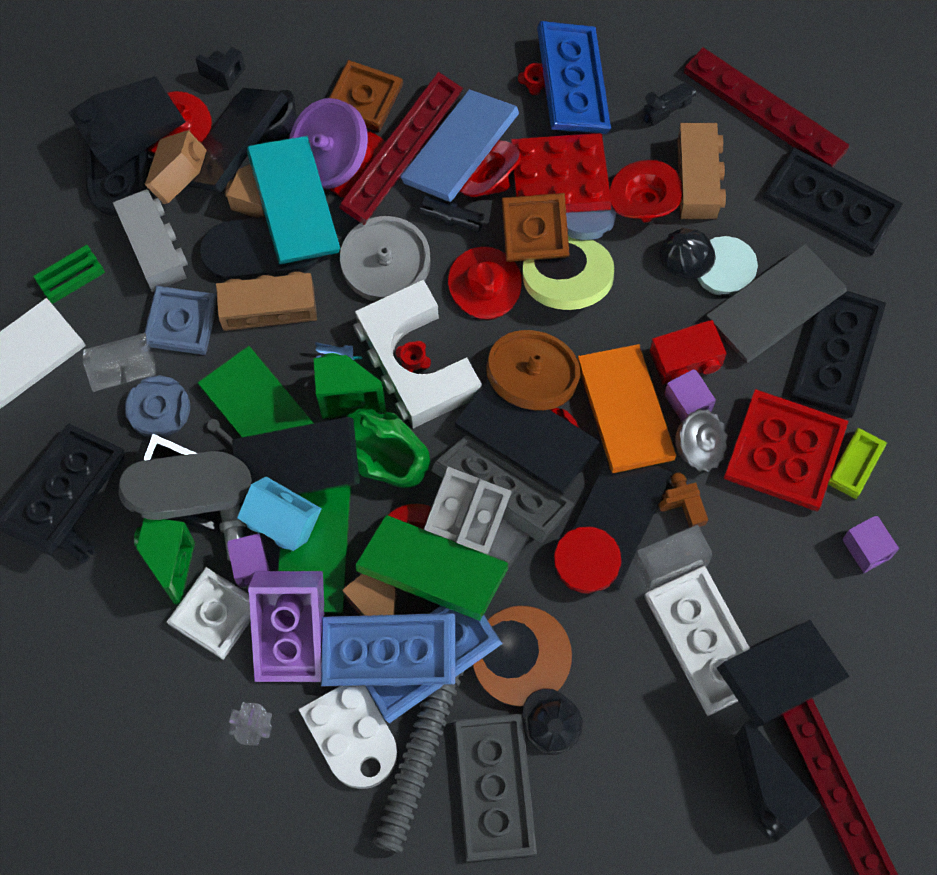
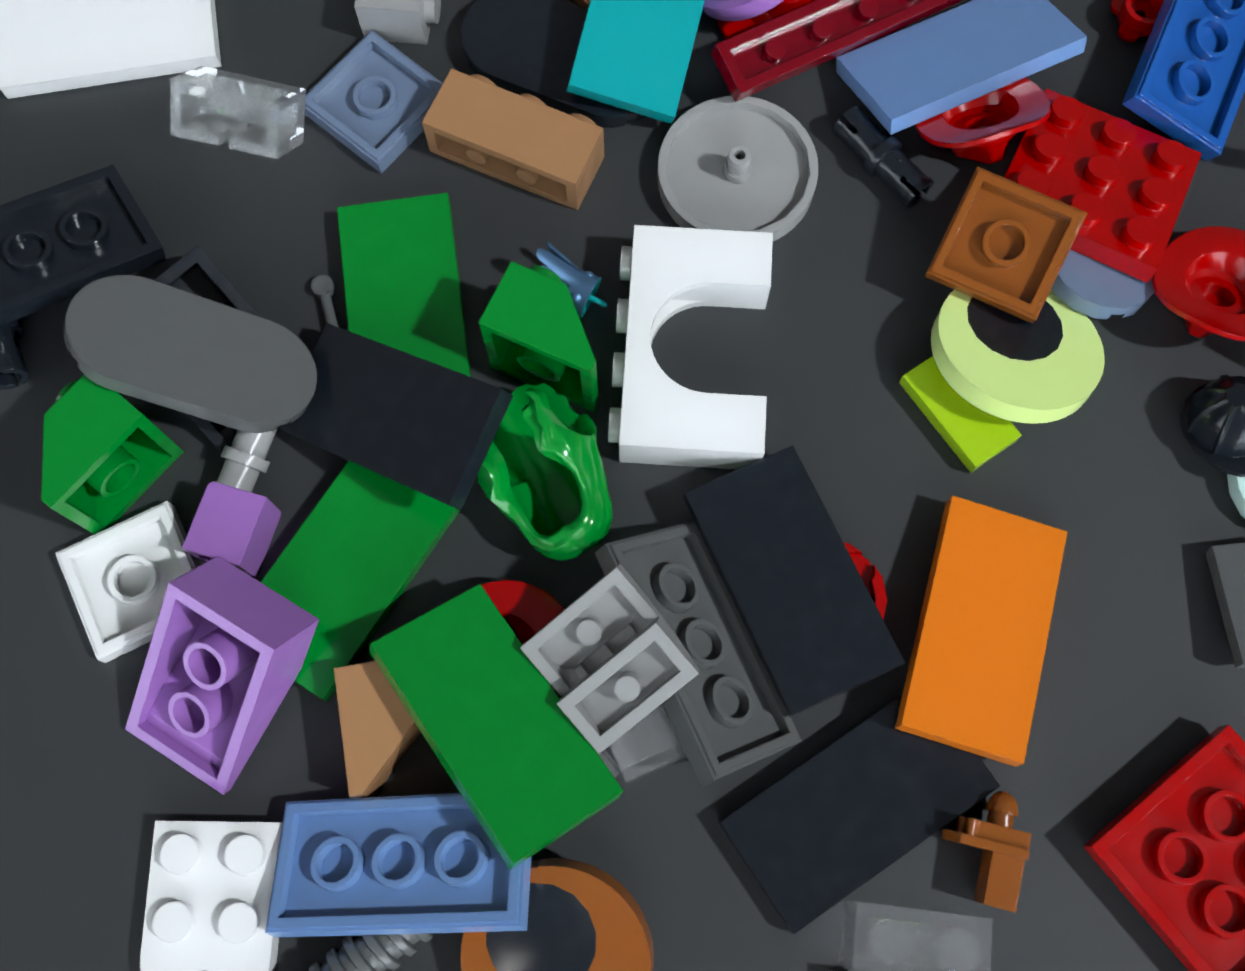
camera: 30 degrees right, 5 degrees up
(157, 406) = (260, 213): sand blue tile -> none
(250, 724) = (62, 801): clear gear -> none
(279, 513) = (313, 483): medium azure brick -> none
(388, 650) = (341, 824): medium blue tile -> none
(417, 349) = (691, 333): red plate -> none
(484, 283) = (870, 293): red hat -> none
(533, 370) = (864, 478): dark orange piece -> none
(565, 322) = (965, 428): none -> lime tile
(587, 559) = (766, 857): red tile -> none
(688, 349) = (1145, 594): red brick -> none
(688, 394) = (1105, 672): medium lavender panel -> none
(701, 440) = (1082, 762): flat silver piece -> none

